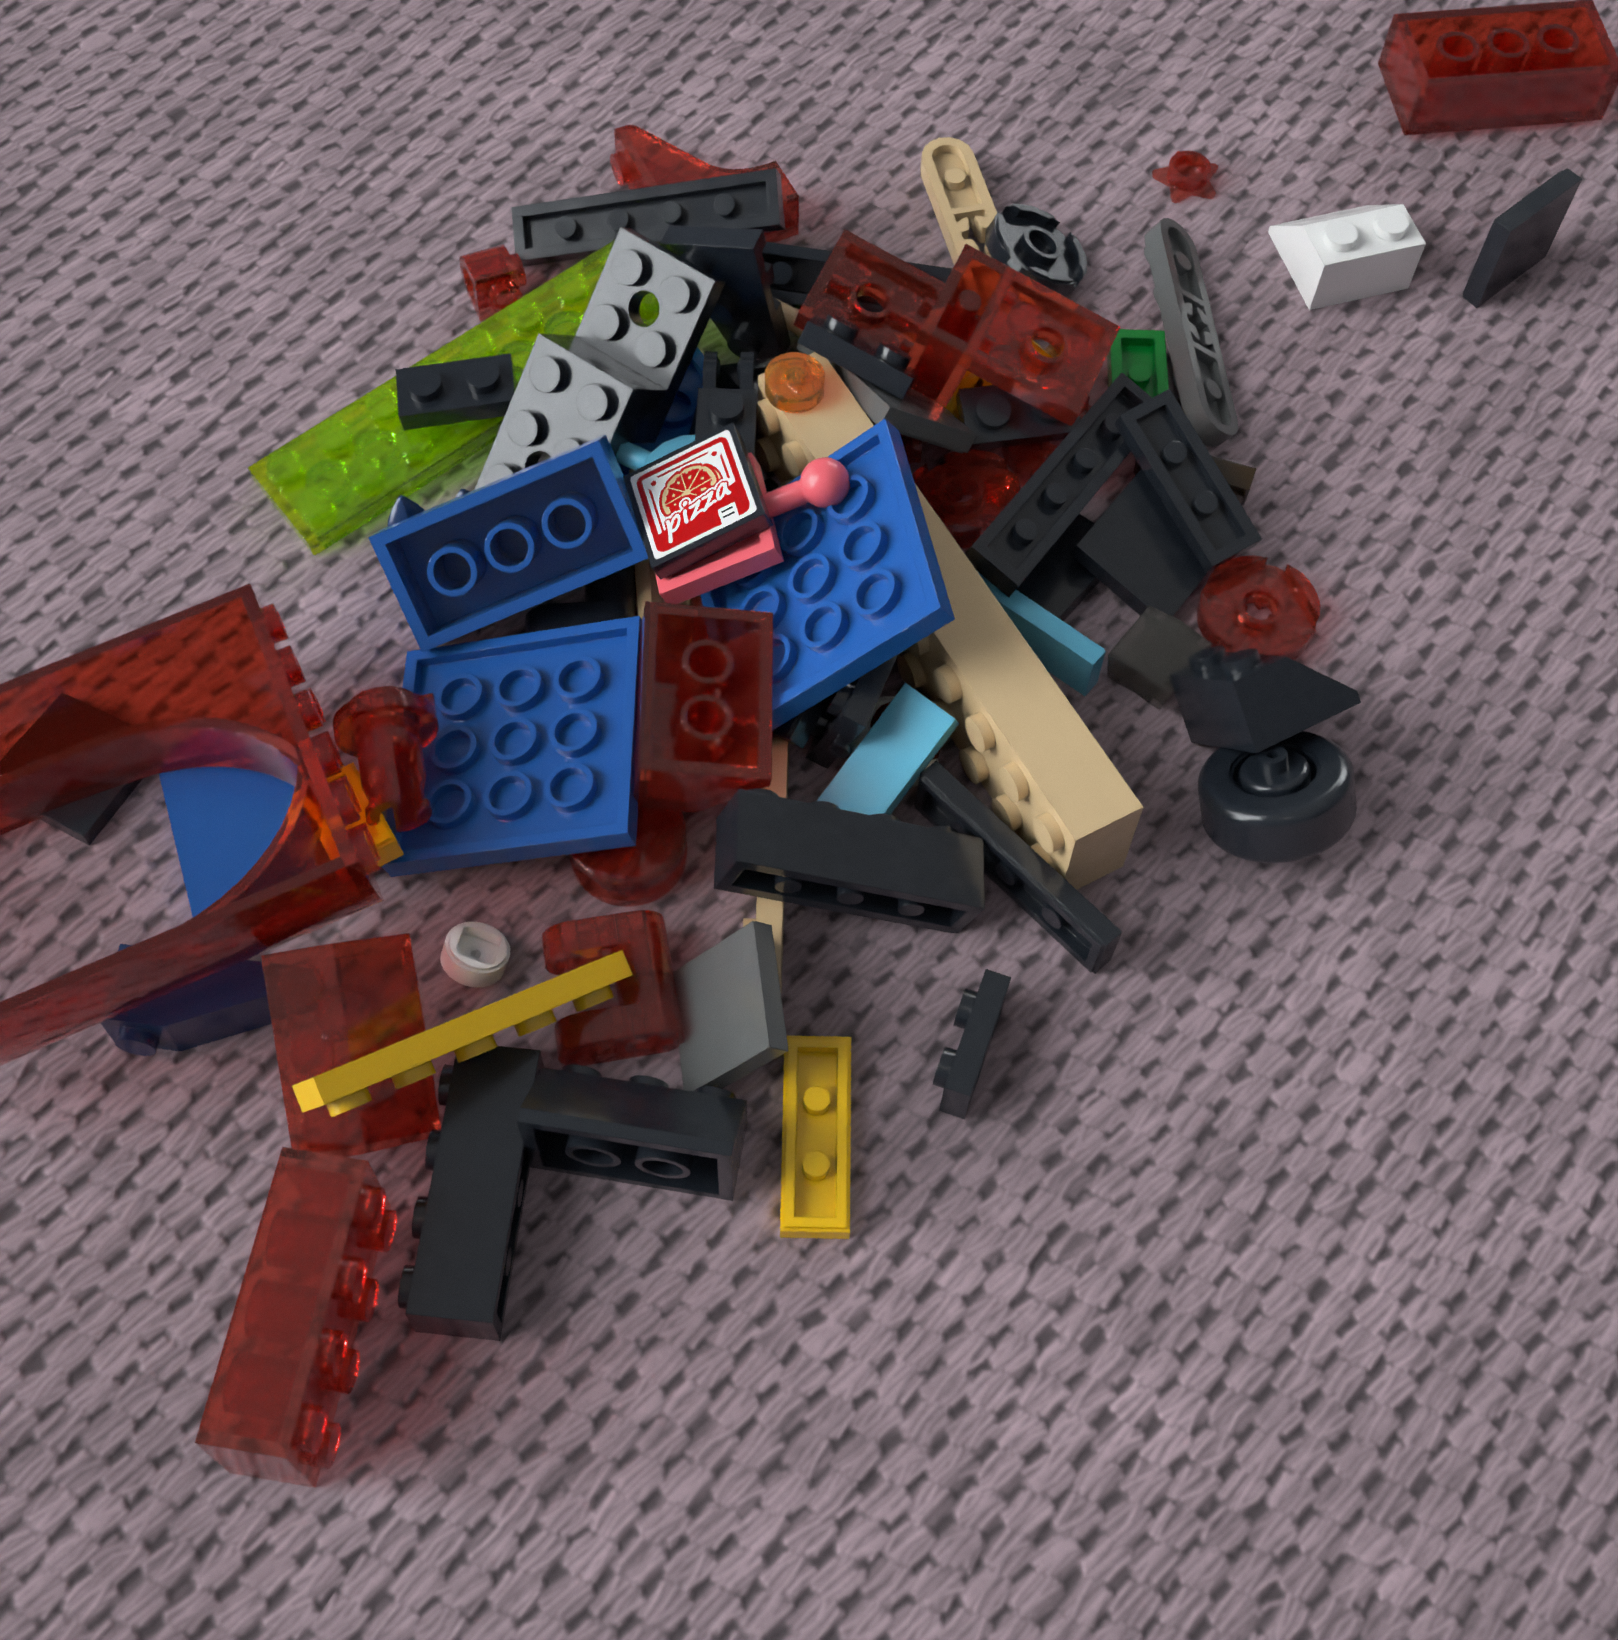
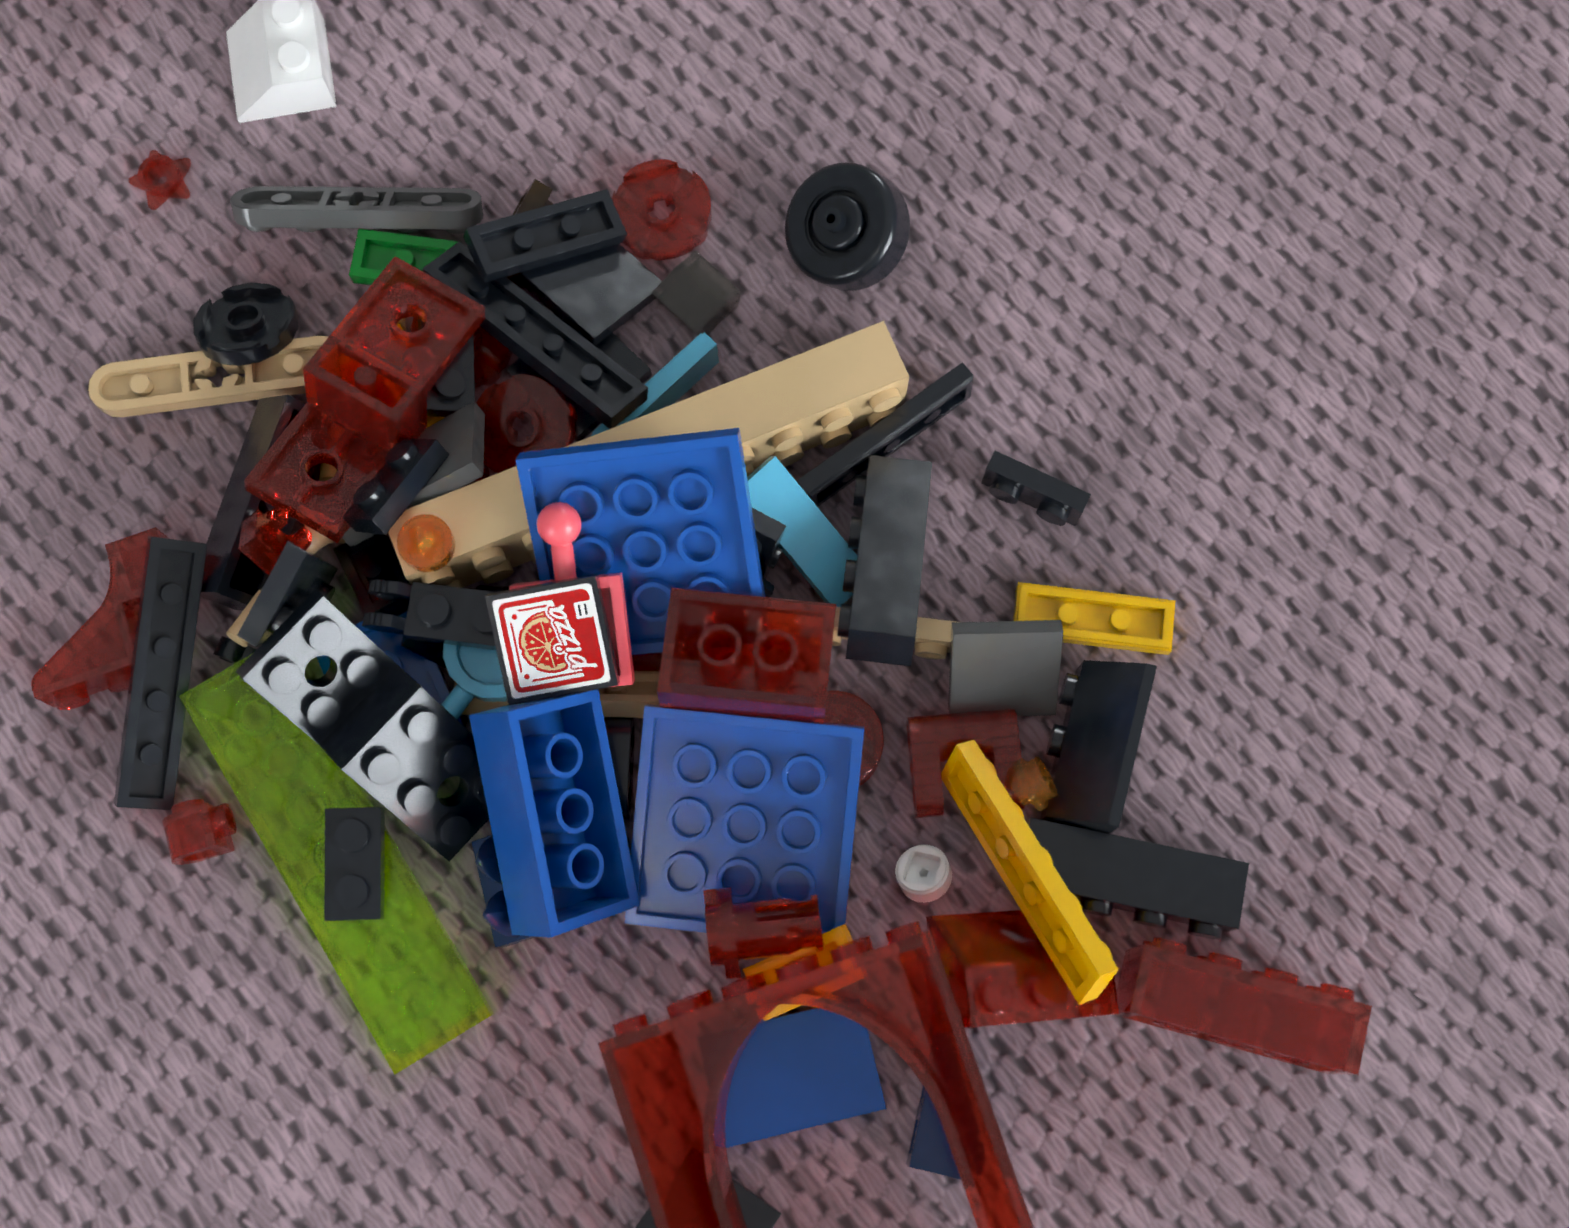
camera: 80 degrees left, 15 degrees up
(579, 1041) = (1033, 783): none -> clear orange plate
(791, 267) = (264, 541): none -> clear red tile
(1253, 698) = (767, 224): black slope -> none

